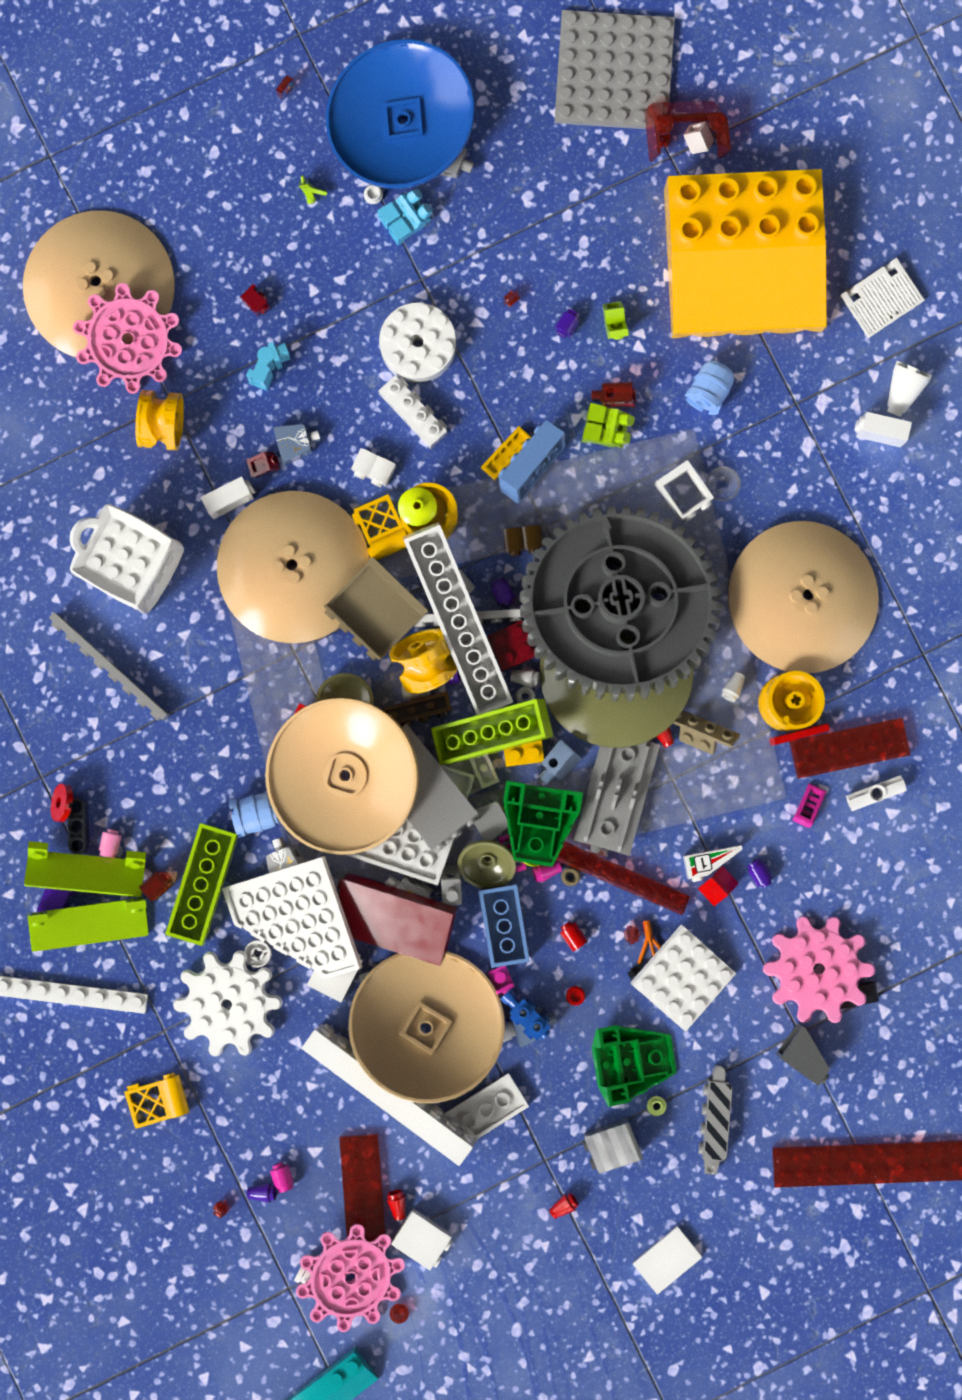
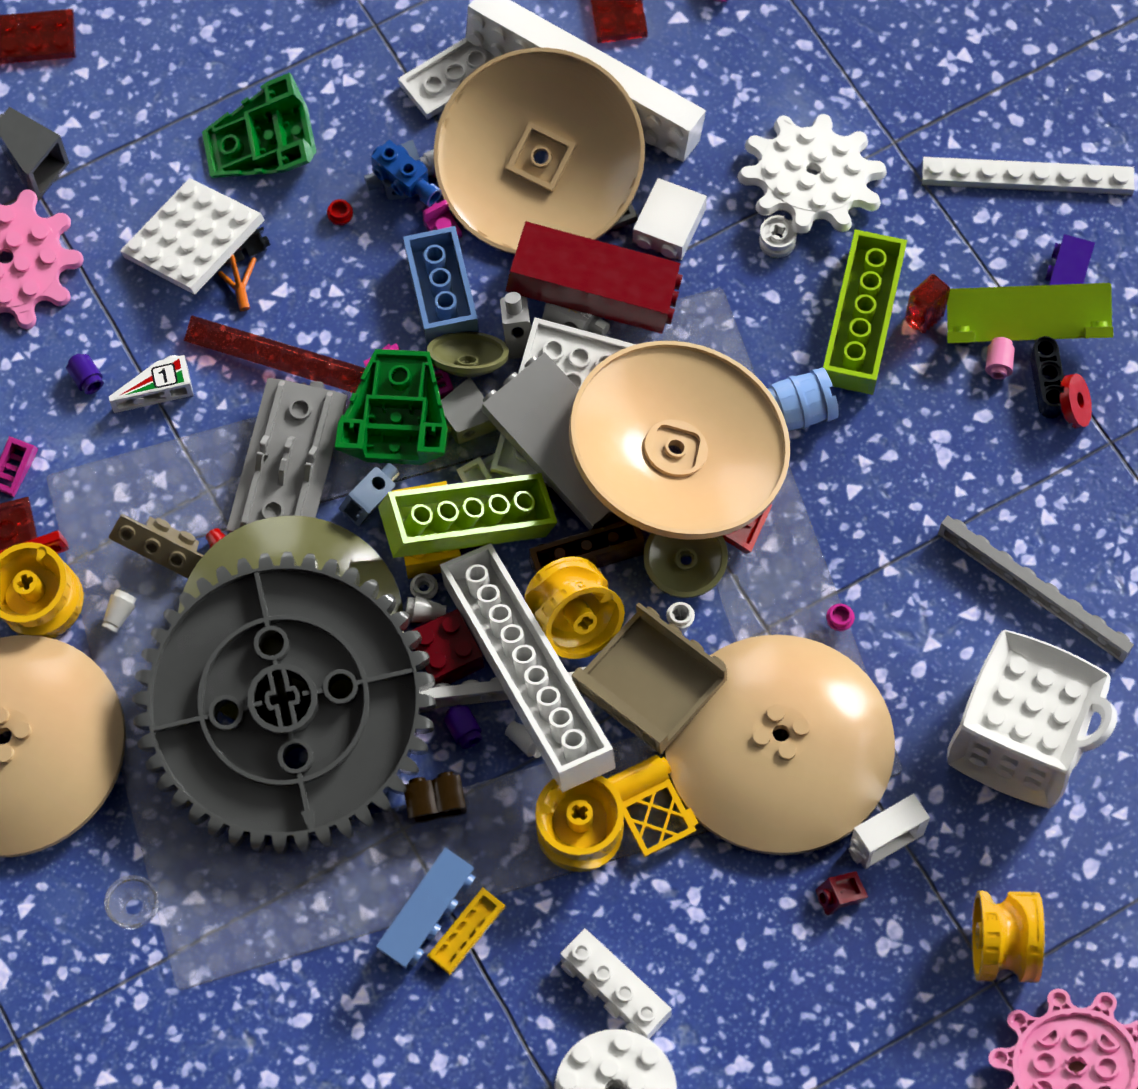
camera: 175 degrees right, 20 degrees down
(87, 924) = (1017, 250): lime bracket -> none
(171, 1094) = (874, 64): yellow piece -> none
(243, 652) = (840, 617): none -> dark pink plate
(268, 360) = (849, 1049): medium azure hips -> none
(284, 856) = (749, 343): light grey torso -> none
(294, 442) = (796, 928): sand blue torso -> none
(297, 915) = (724, 275): white plate -> none
(351, 651) = (681, 615): none -> white cone
(373, 467) = (670, 896): white brick -> none
(419, 516) = (596, 830): neon yellow dish -> none
(570, 882) = (351, 350): dark tan plate -> none
(573, 935) = (344, 281): red brick -> none
(612, 1146) = (284, 38): slope -> none
(614, 429) = (300, 975): lime hips -> none
(623, 396) = (286, 1027): clear red torso -> none
(631, 935) = (264, 287): clear red plate -> none
(656, 1099) = (228, 97): yellowish green plate -> none
(674, 474) = (207, 906): white window -> none
(710, 387) = (149, 1047): light blue piece -> none
(716, 1120) = (148, 78): light grey hinge -> none
(718, 886) = (141, 351): red piece -> none

